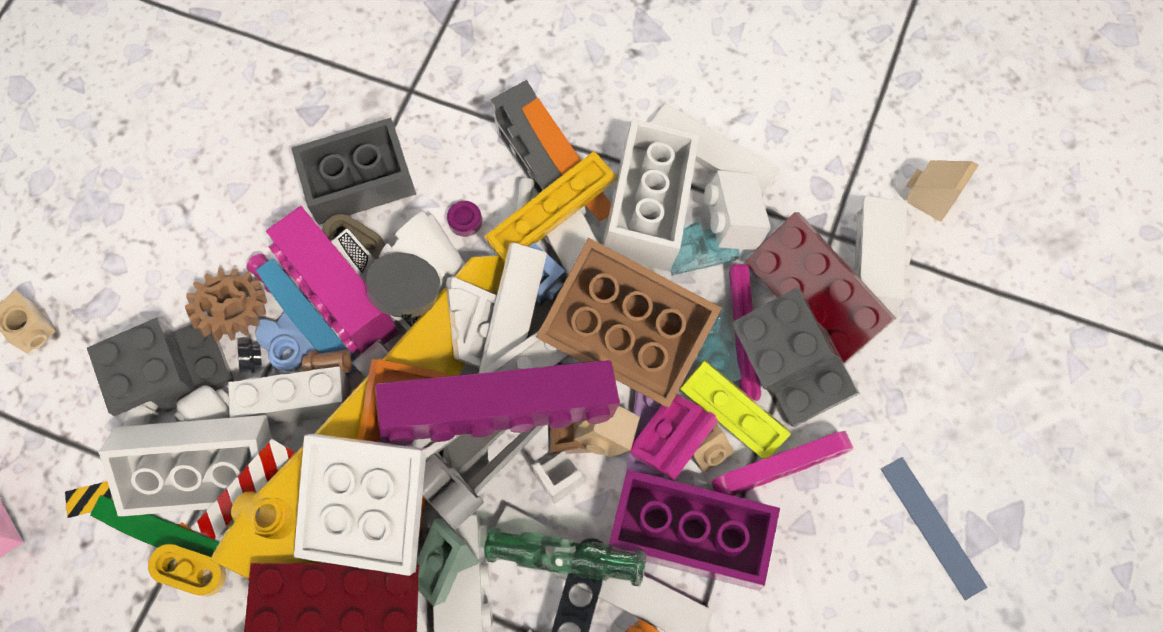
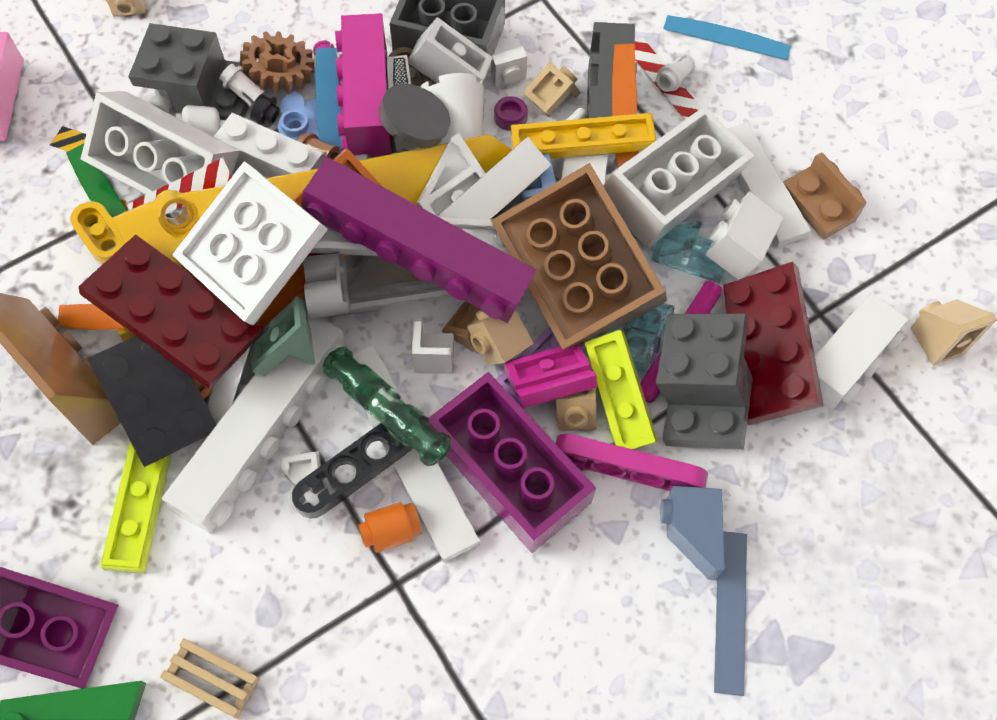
camera: 30 degrees right, 5 degrees down
(213, 348) = (240, 84): none -> white pin
(382, 204) = (446, 51): none -> white brick
(435, 178) = (509, 66): none -> white plate
(485, 175) = (551, 88): none -> tan bracket
(576, 99) = (670, 77): none -> white pin
(581, 108) = (651, 64): none -> sticker
(591, 31) = (727, 36): none -> dark azure sticker
(770, 131) = (825, 197): none -> medium nougat bracket
(867, 480) = (696, 526): none -> sand blue slope

